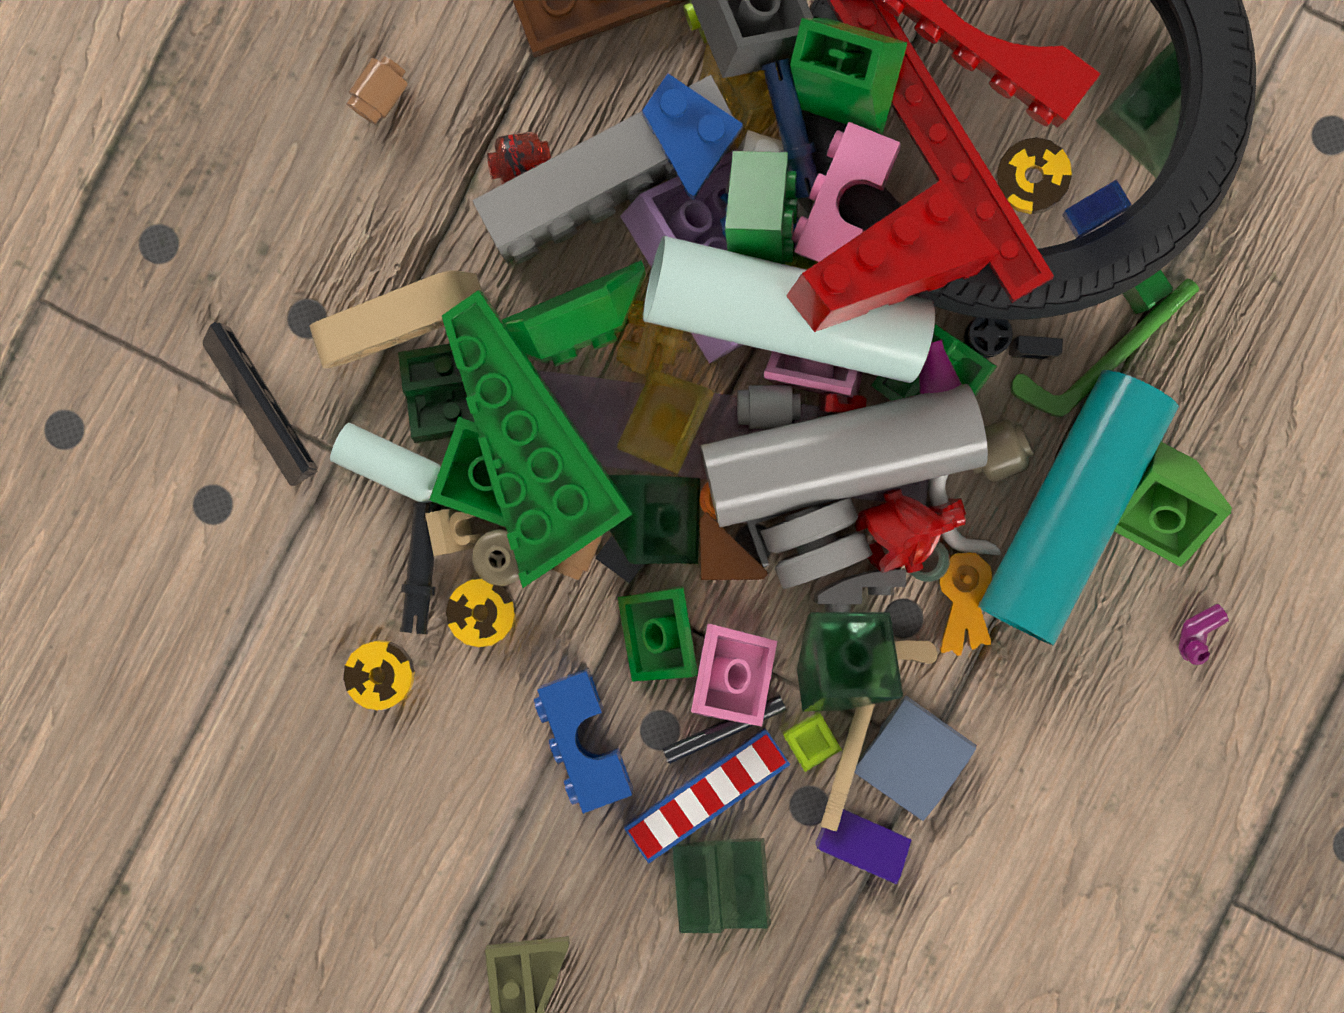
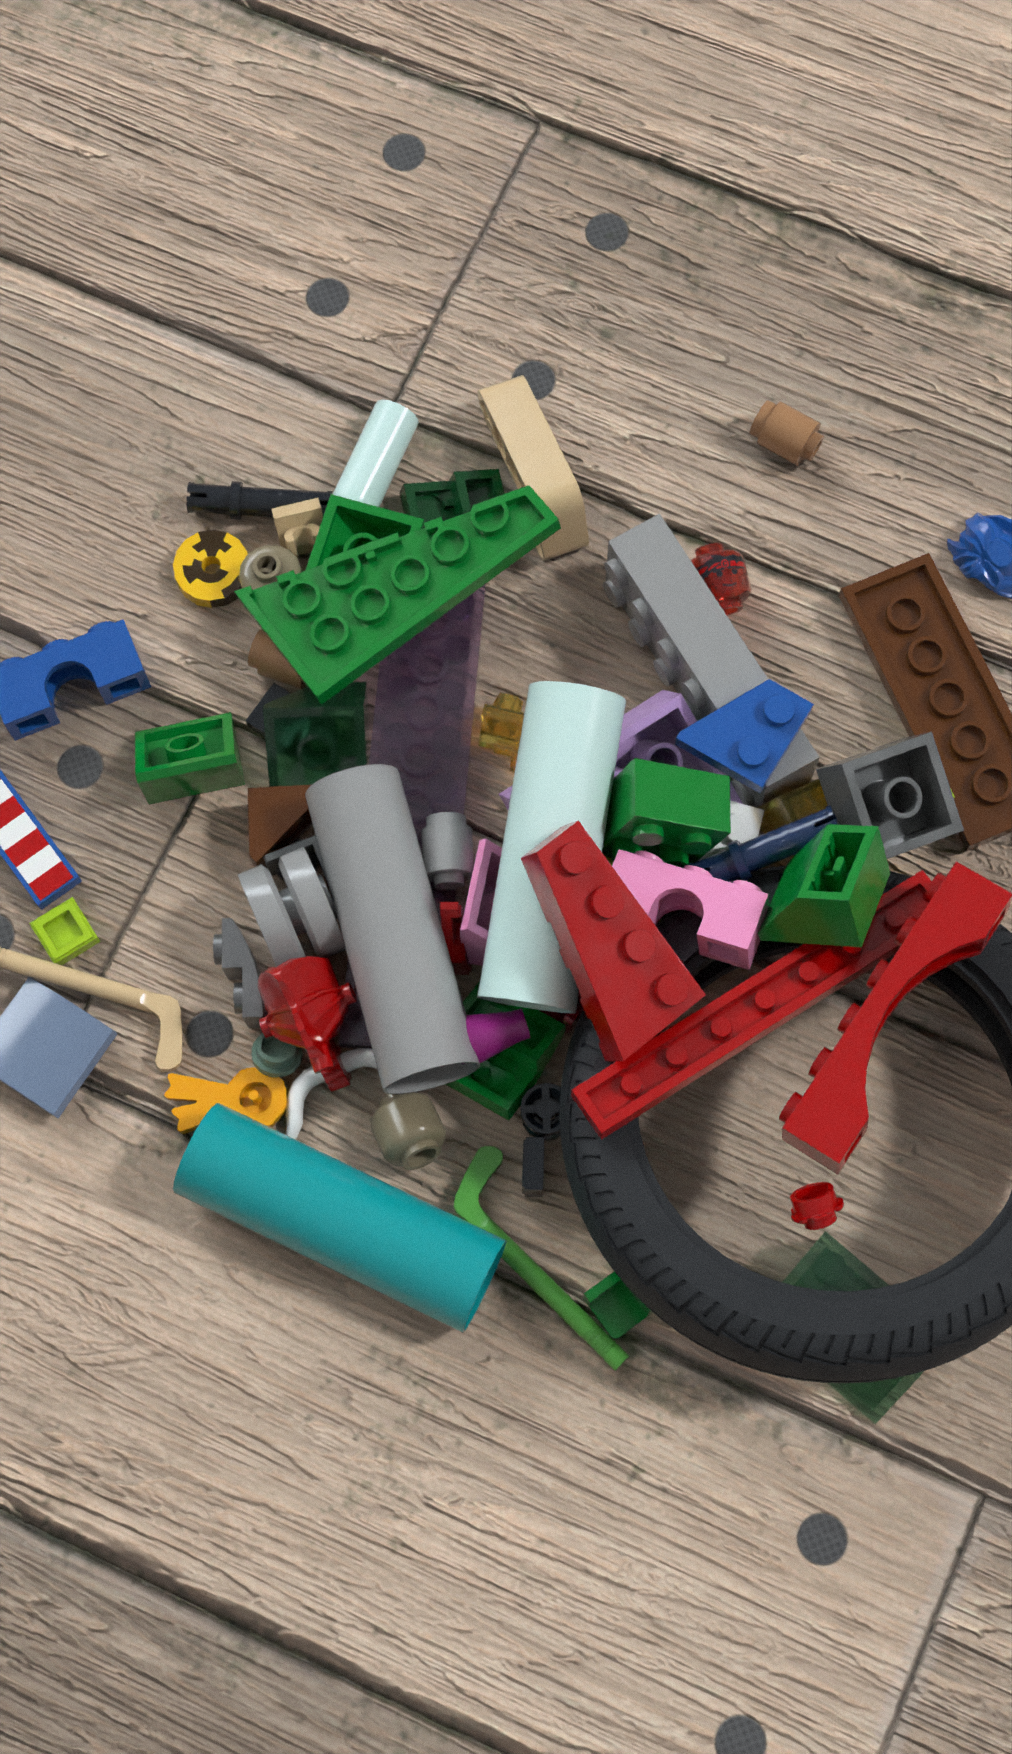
camera: 85 degrees right, 15 degrees down
(258, 404) = (437, 336): black slope -> none
(359, 677) = (147, 486): yellow piece -> none
(578, 317) = (534, 631): green wedge -> none
(665, 421) = (425, 744): clear yellow slope -> none
(717, 733) = (80, 834): black bar -> none
(734, 675) = (139, 829): bright pink slope -> none
(847, 661) = (157, 961): clear green slope -> none
(1039, 155) = (715, 1135): dark brown piece -> none
(1096, 209) = (683, 1181): clear blue piece -> none
(1126, 99) = (815, 1205): none -> red plate
(1173, 507) = (348, 1334): bright green slope -> none
(1195, 632) = (191, 1381): magenta arm -> none

